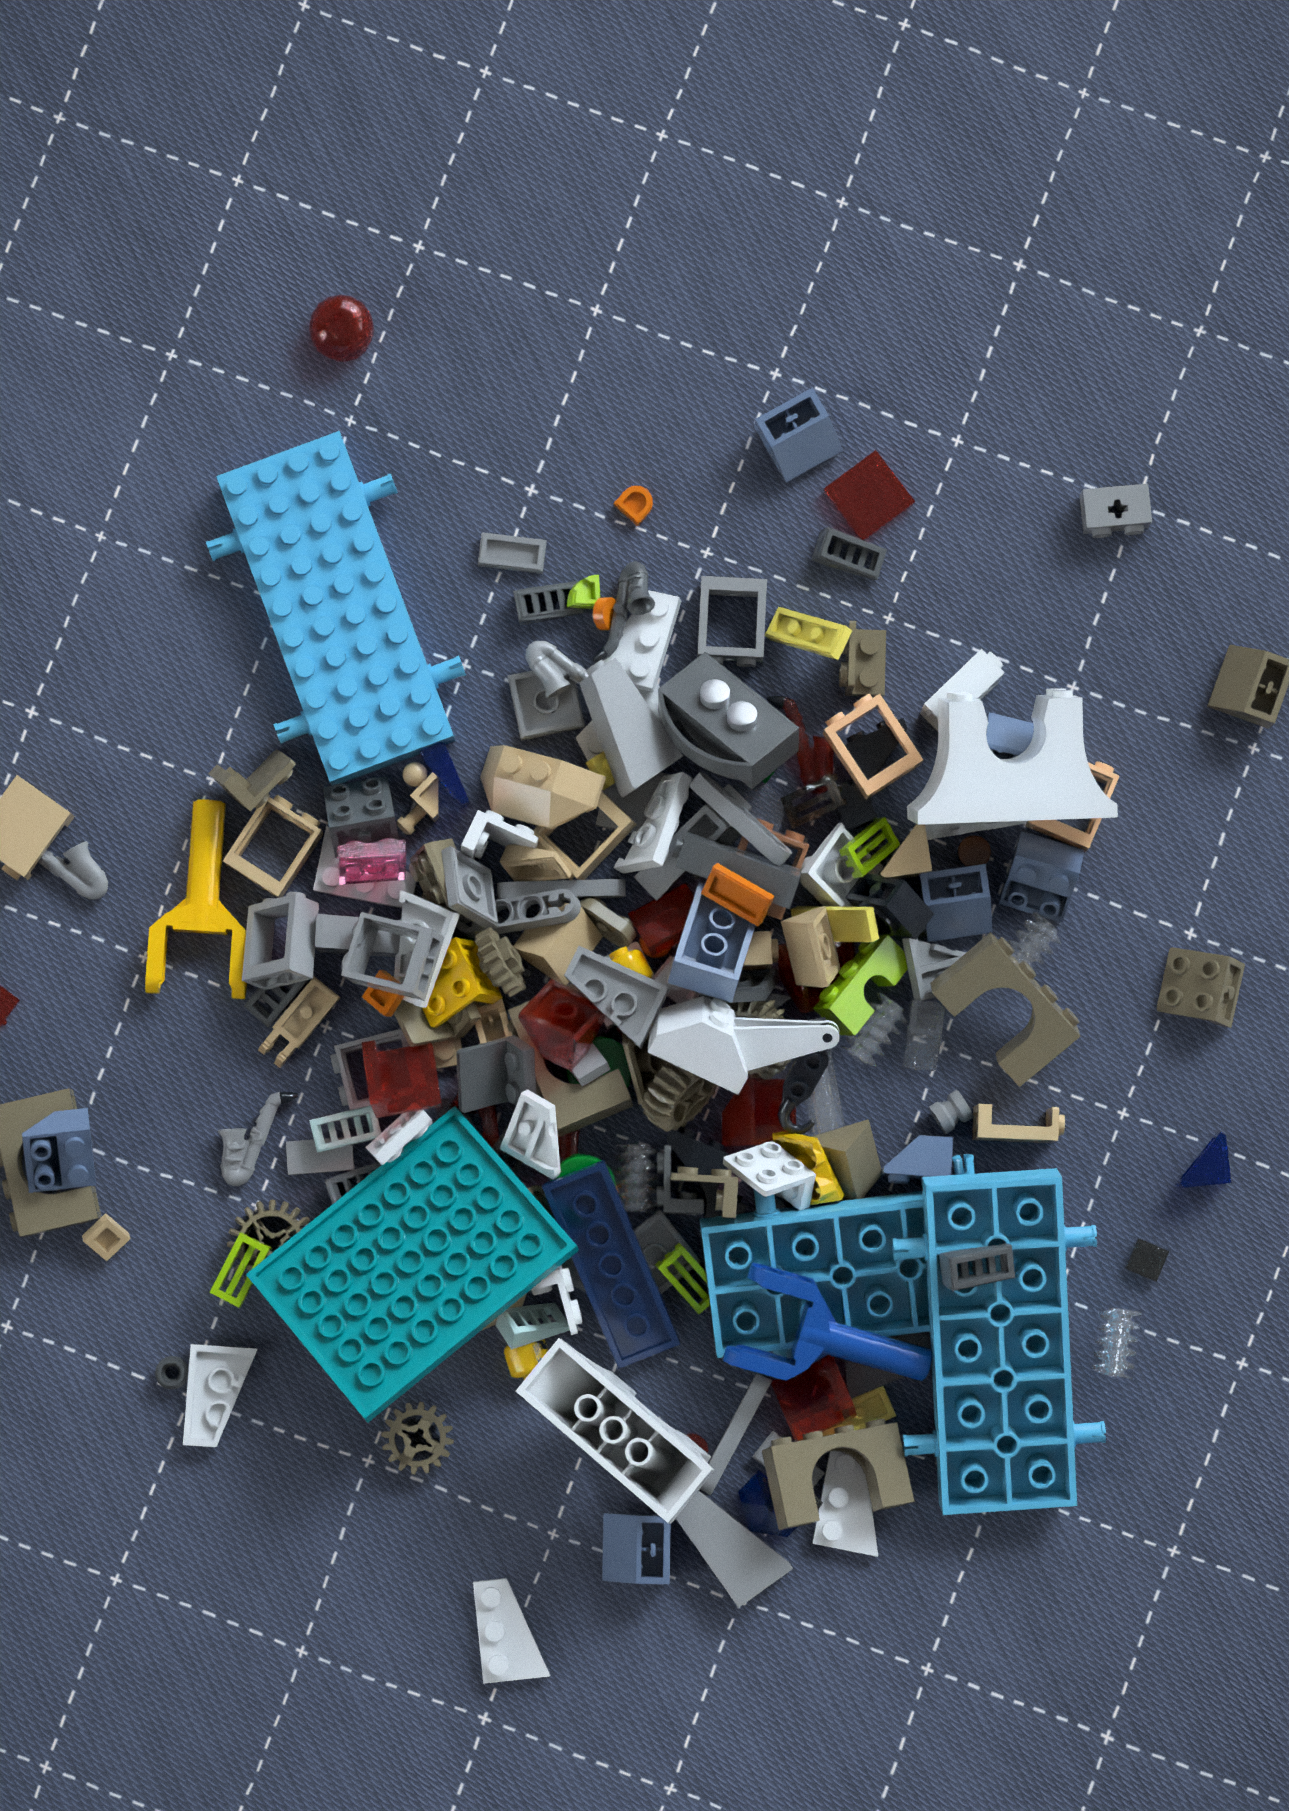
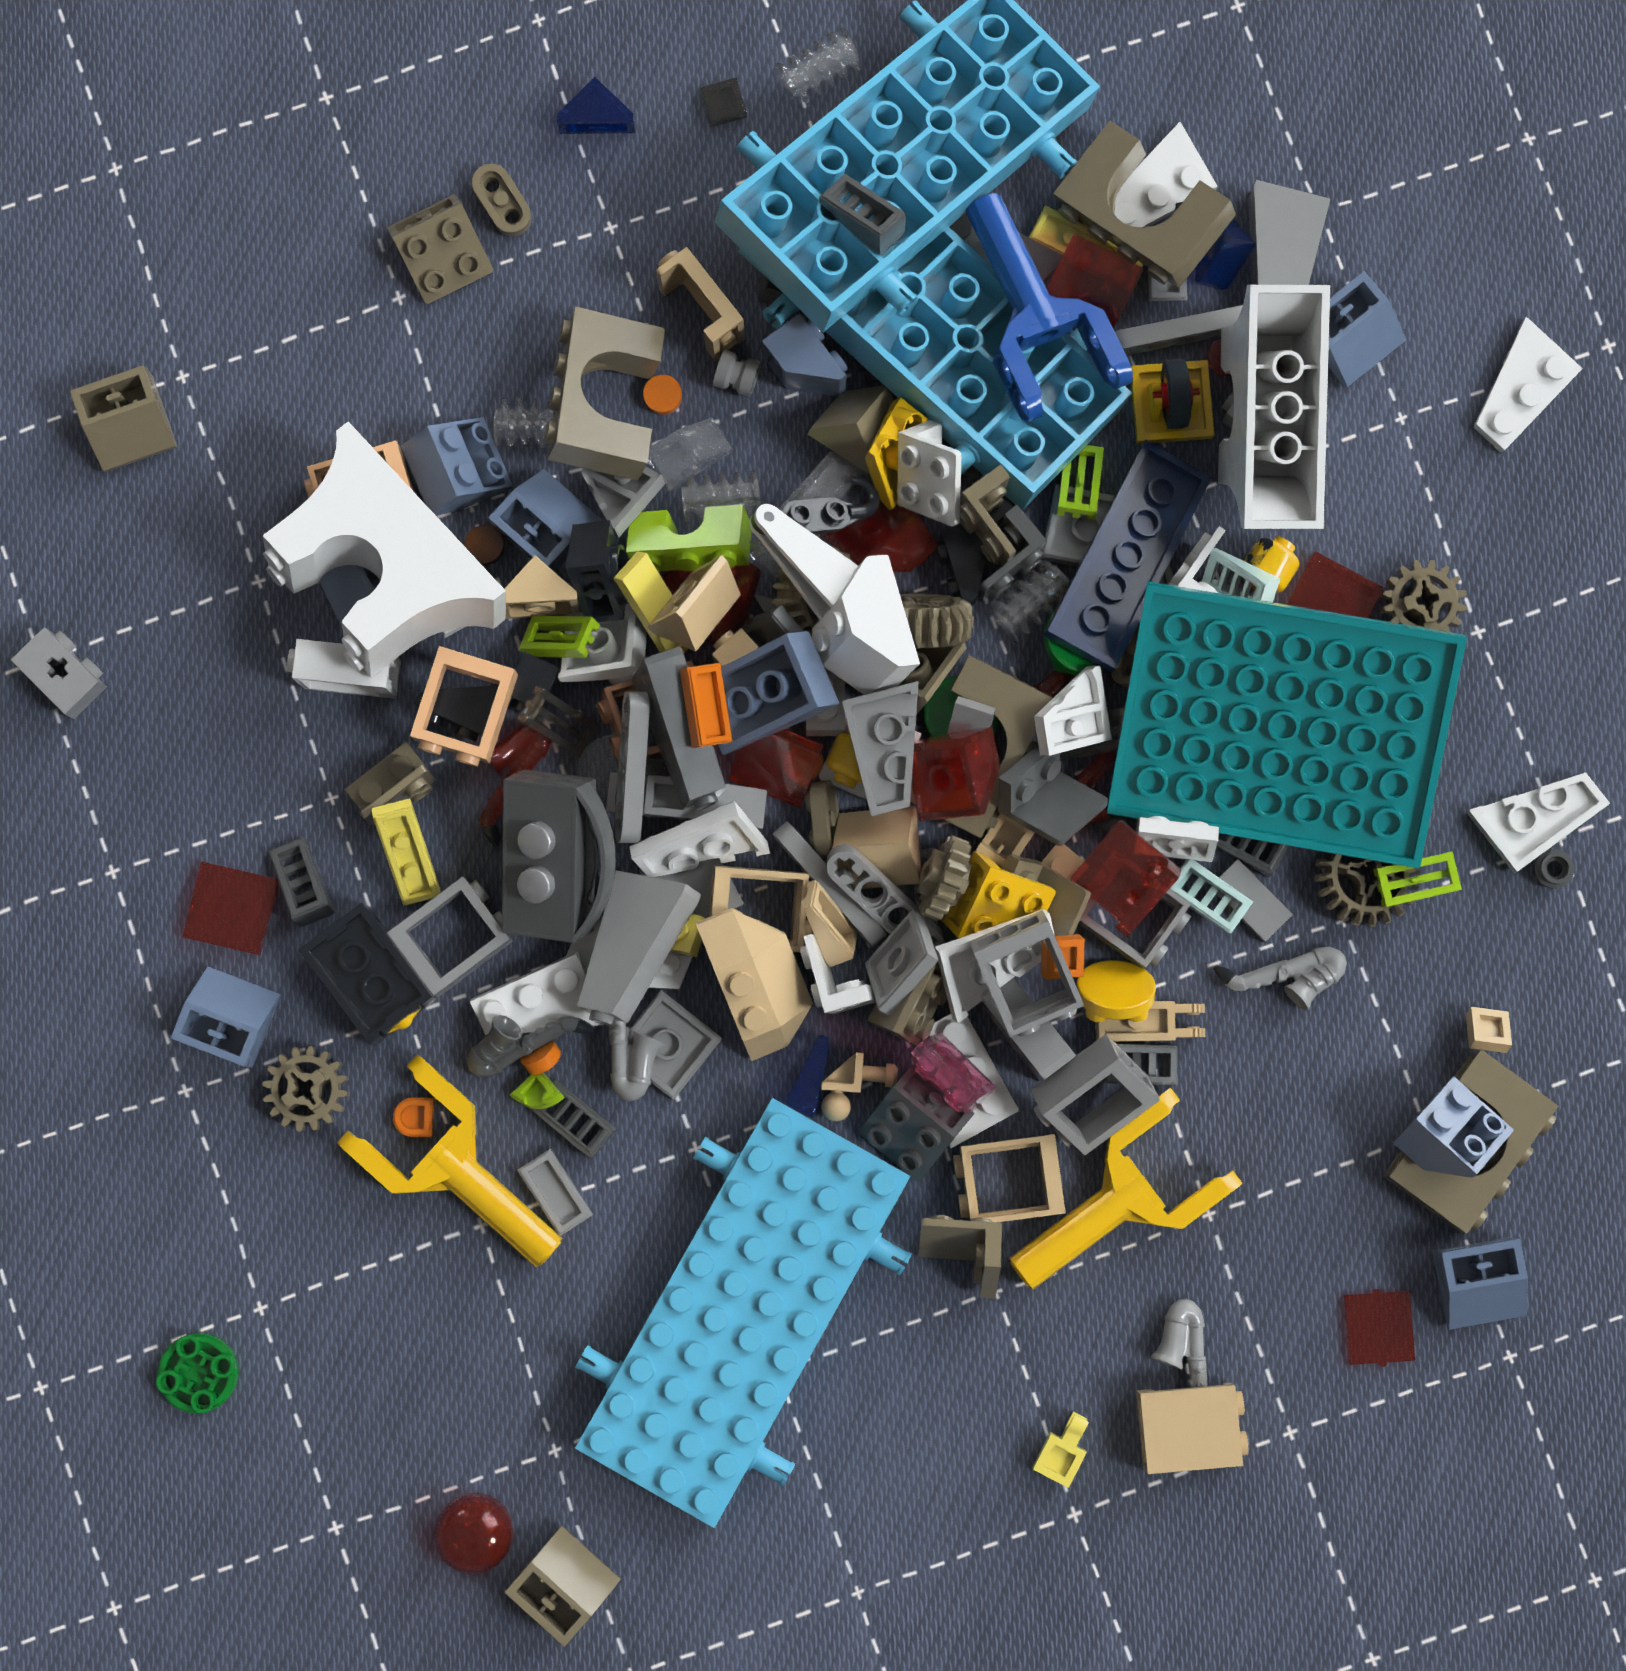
camera: 130 degrees left, 0 degrees up
(75, 733) = (1061, 1455): none -> light yellow plate
(261, 355) = (562, 1585): none -> dark tan slope
(335, 1014) = (1116, 991): none -> yellow tile
(471, 1378) = (1334, 589): none -> clear red tile
(580, 501) = (454, 1168): none -> yellow piece
(587, 238) = (197, 1373): none -> green tile
(691, 1386) = (1172, 401): none -> yellow plate
(698, 449) = (291, 1099): none -> dark tan gear
(750, 545) = (367, 974): none -> black piece
(978, 1052) = (662, 394): none -> orange tile
(1199, 1054) = (503, 201): none -> dark tan plate

